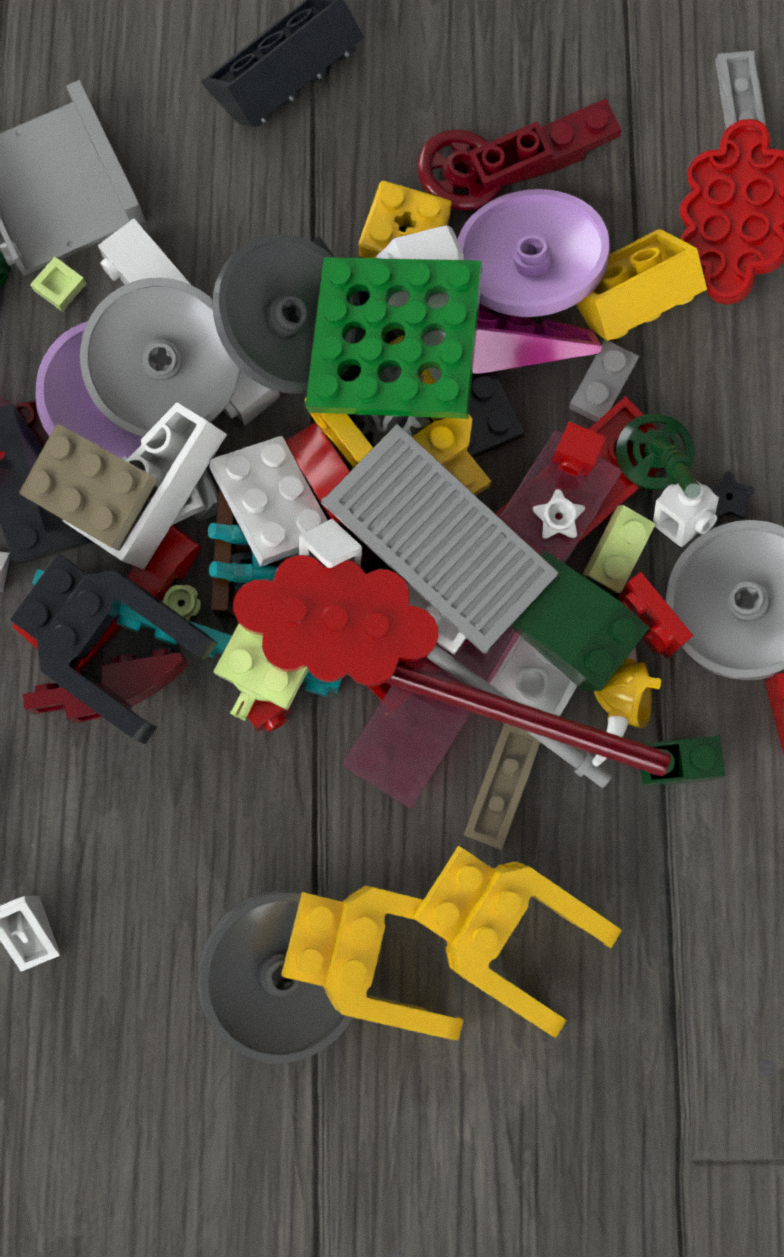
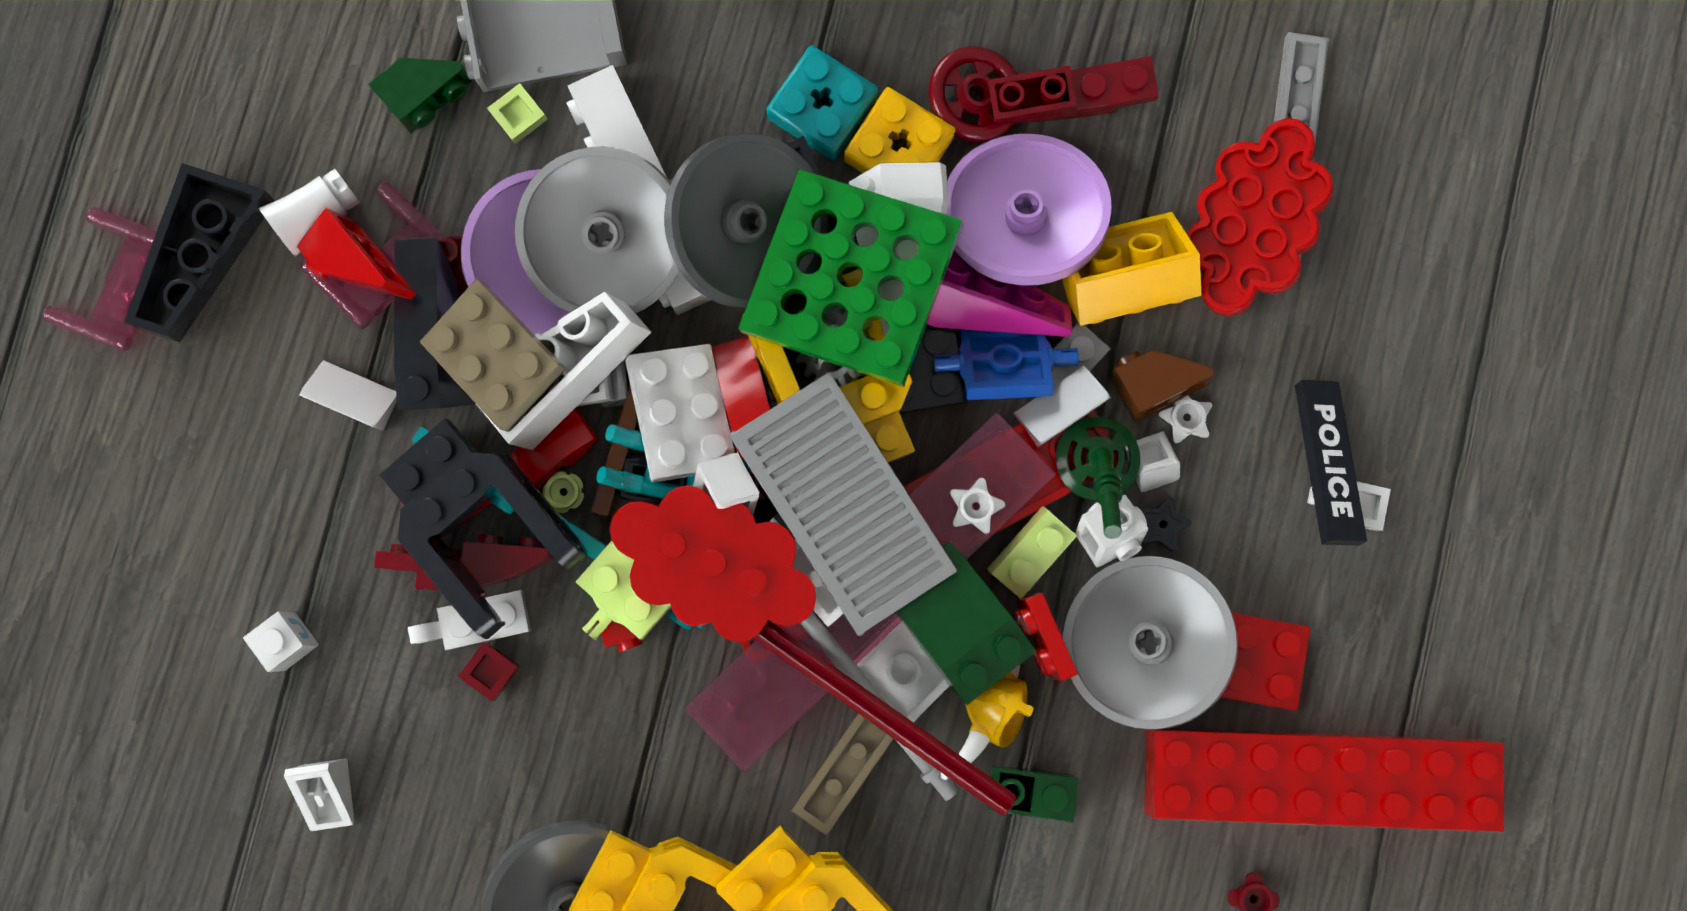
camera: 10 degrees right, 5 degrees up
(118, 749) = (456, 633): none -> white plate
(152, 780) = (489, 671): none -> dark red plate
(322, 188) = (819, 77): none -> teal brick
(550, 389) = (1005, 364): none -> blue plate
(578, 450) = (1012, 444): red plate -> none
(615, 408) = (1069, 402): none -> slope
(689, 372) = (1157, 381): none -> reddish brown slope
(710, 445) = (1157, 462): none -> white slope
(726, 390) = (1182, 428): none -> white plate

